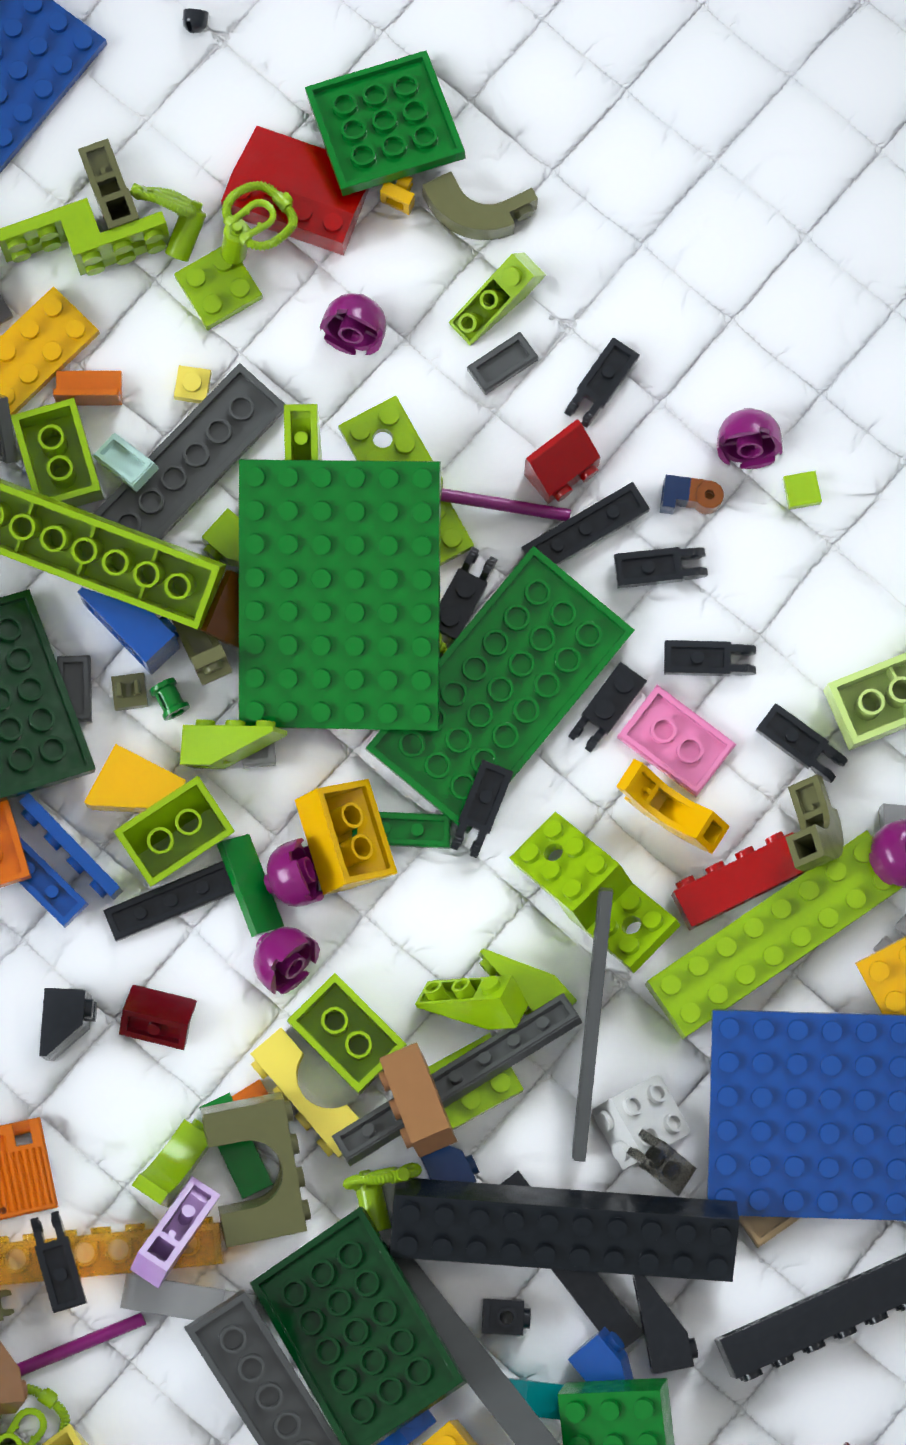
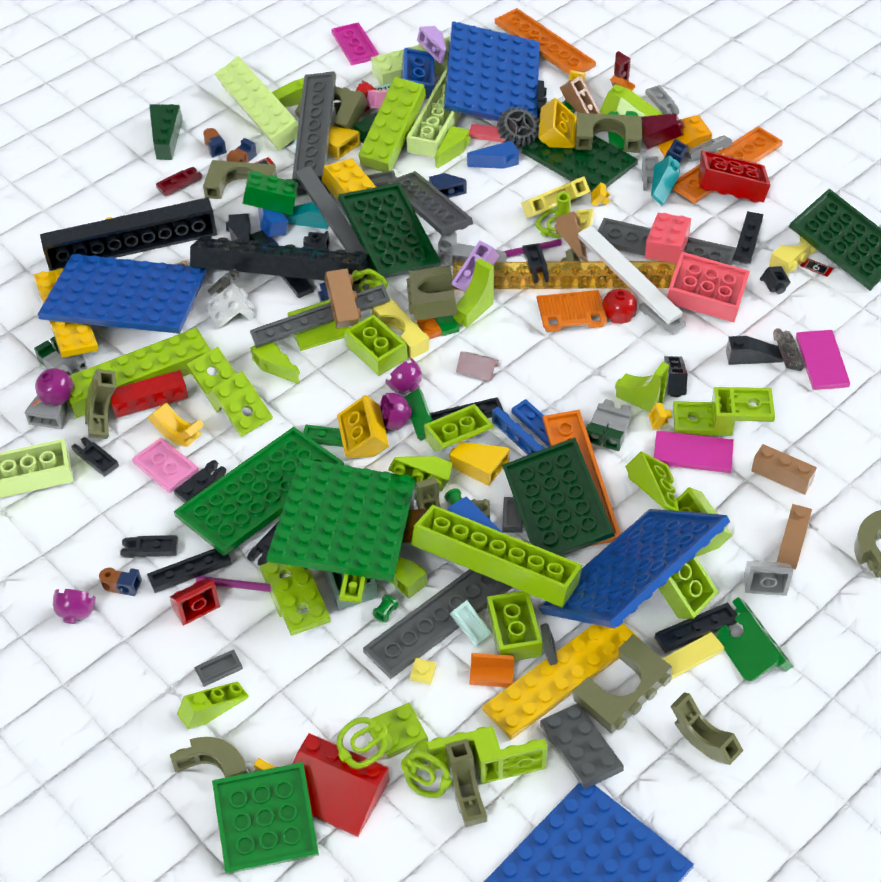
camera: 170 degrees left, 30 degrees down
(64, 1020) = (525, 357): black slope -> none
(354, 323) = (309, 692): magenta cylinder -> none
(478, 1001) = (307, 351): lime slope -> none
(482, 804) = (282, 431): black hinge -> none
(592, 1024) = (243, 334): dark grey tile -> none
(603, 379) = (156, 649): black hinge -> none
(706, 658) = (135, 499): black hinge -> none
(802, 490) = (50, 581): lime tile -> none

